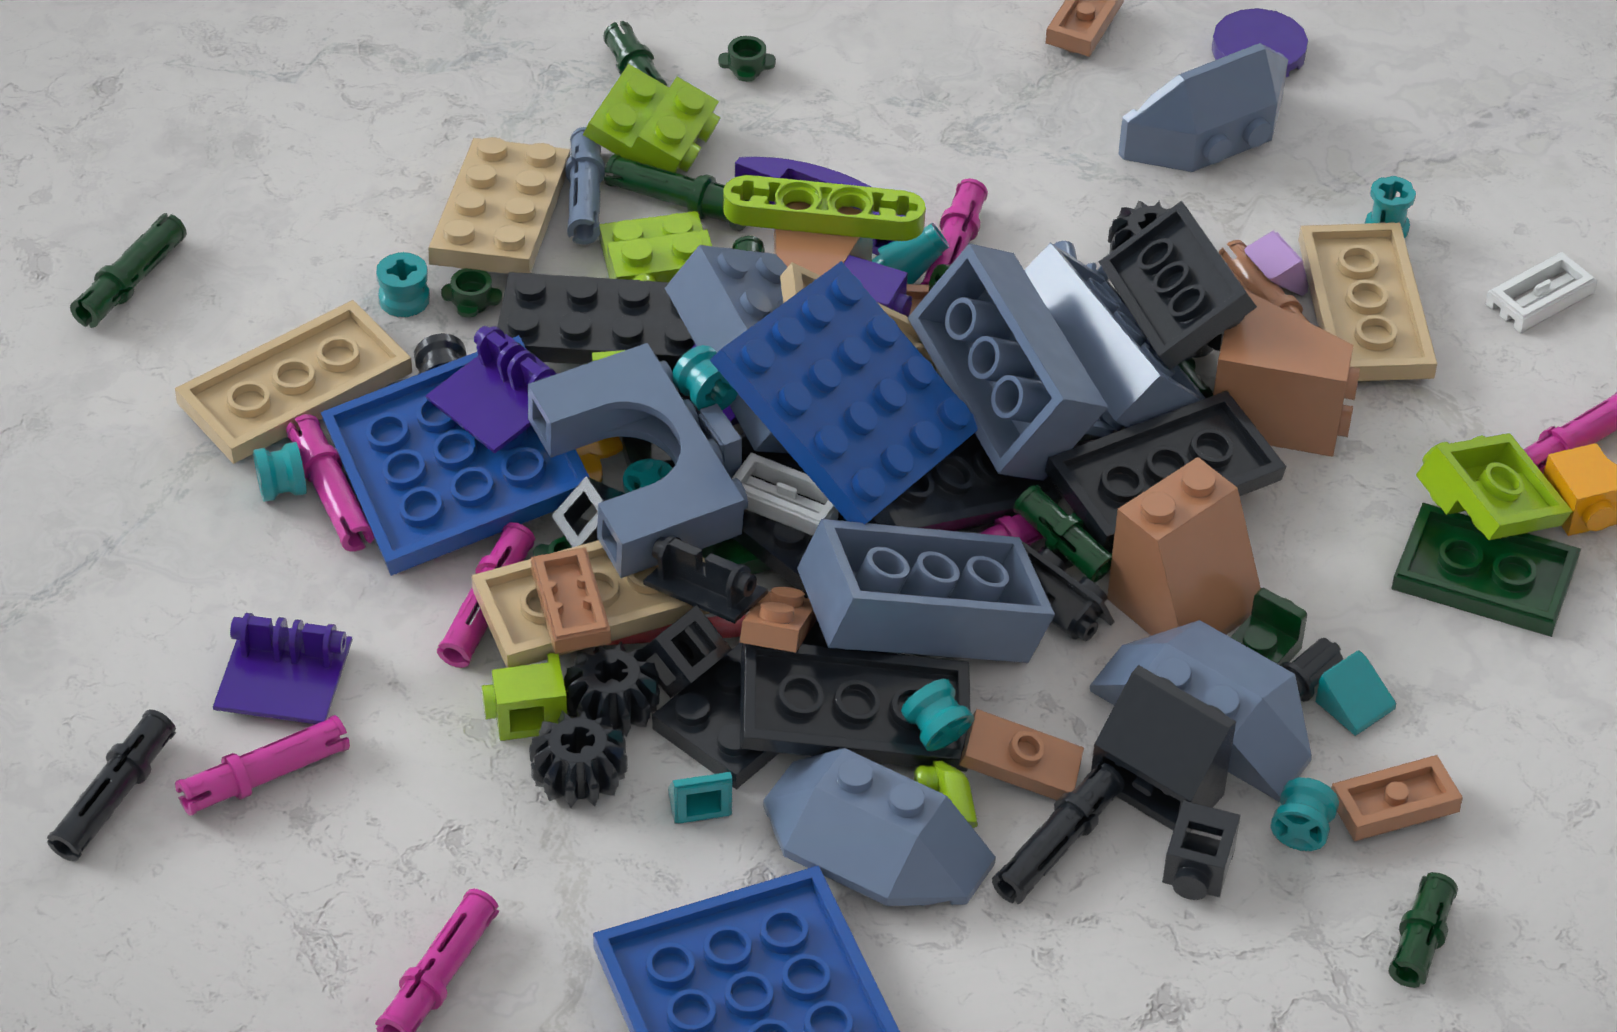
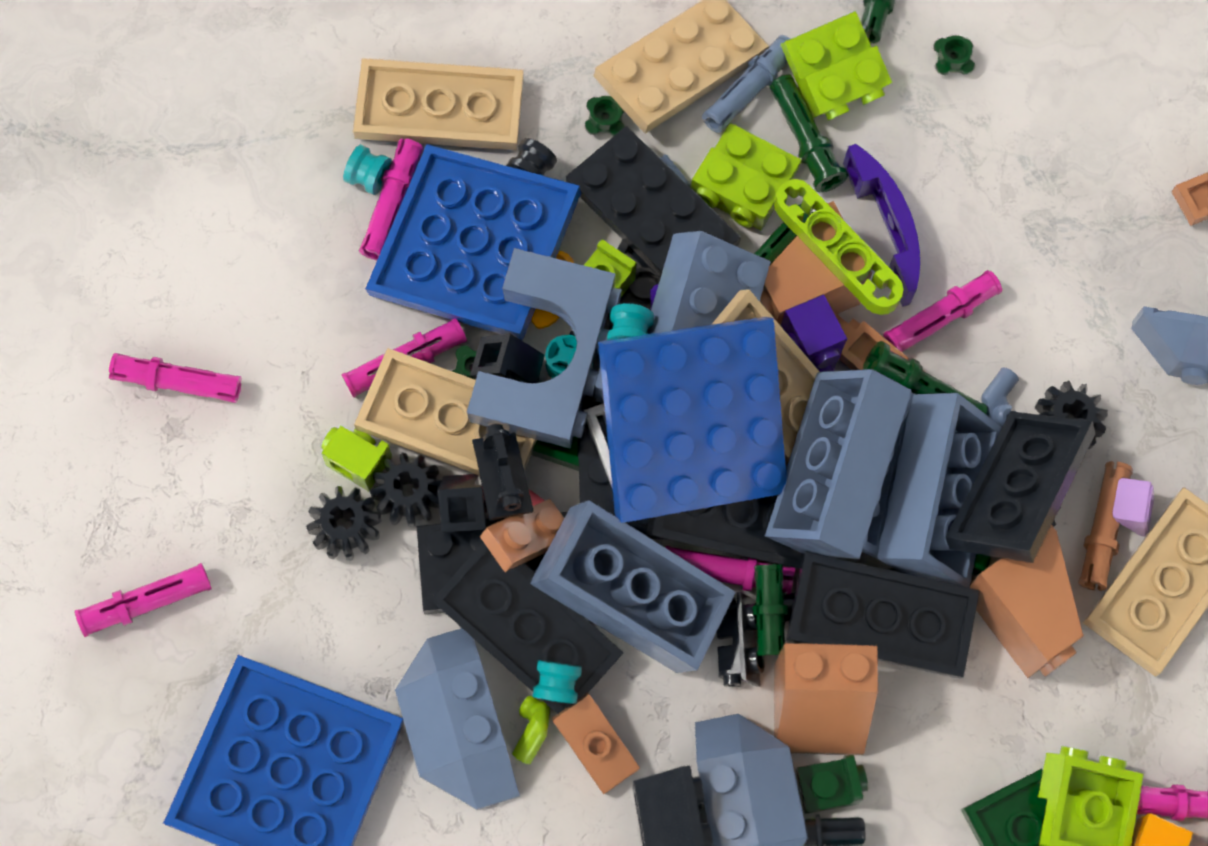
camera: 40 degrees right, 25 degrees up
(125, 767) = (86, 323): black pin -> none
(282, 669) = (246, 317): dark purple hinge -> none
(403, 284) = (572, 87): teal wheel -> none
(492, 389) = (525, 219): dark purple hinge -> none
(570, 600) = (415, 419): nougat plate -> none
(701, 797) = (392, 605): teal slope -> none
(914, 255) = (909, 311): teal cone -> none
(1073, 816) = (567, 814): black pin -> none

